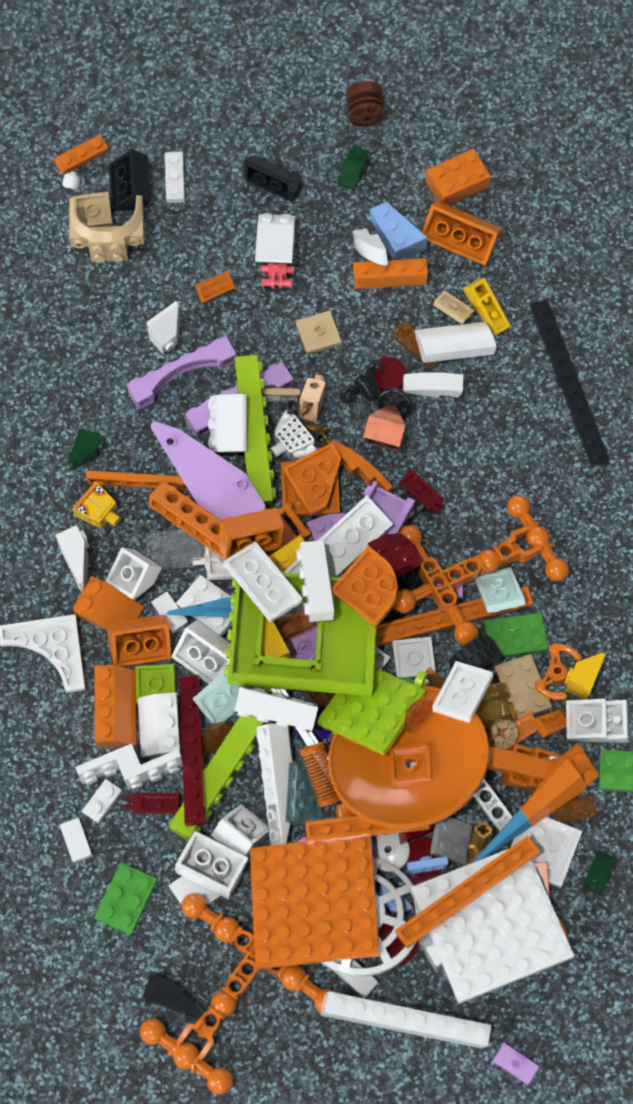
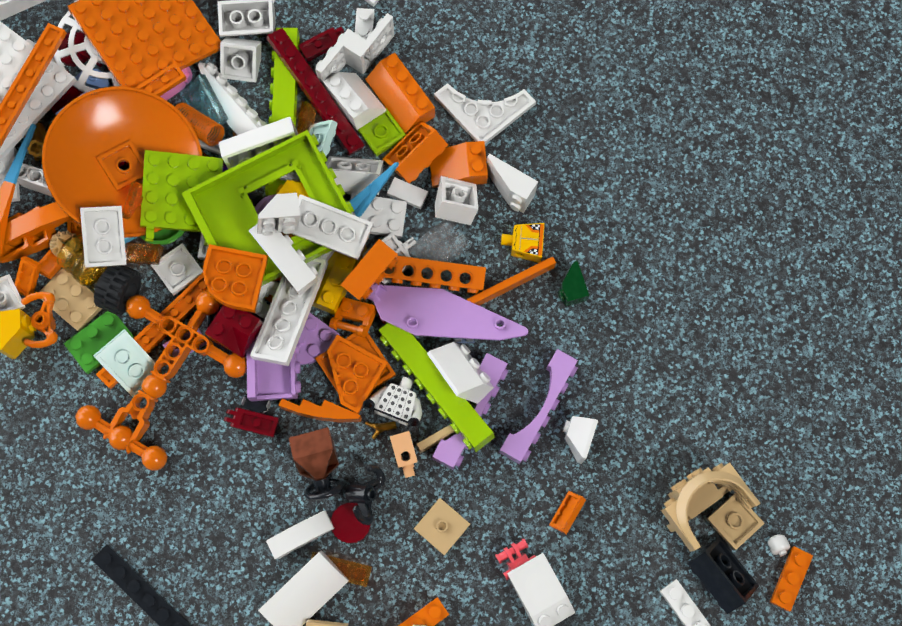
camera: 145 degrees right, 5 degrees up
(300, 595) = (279, 215): none -> white slope

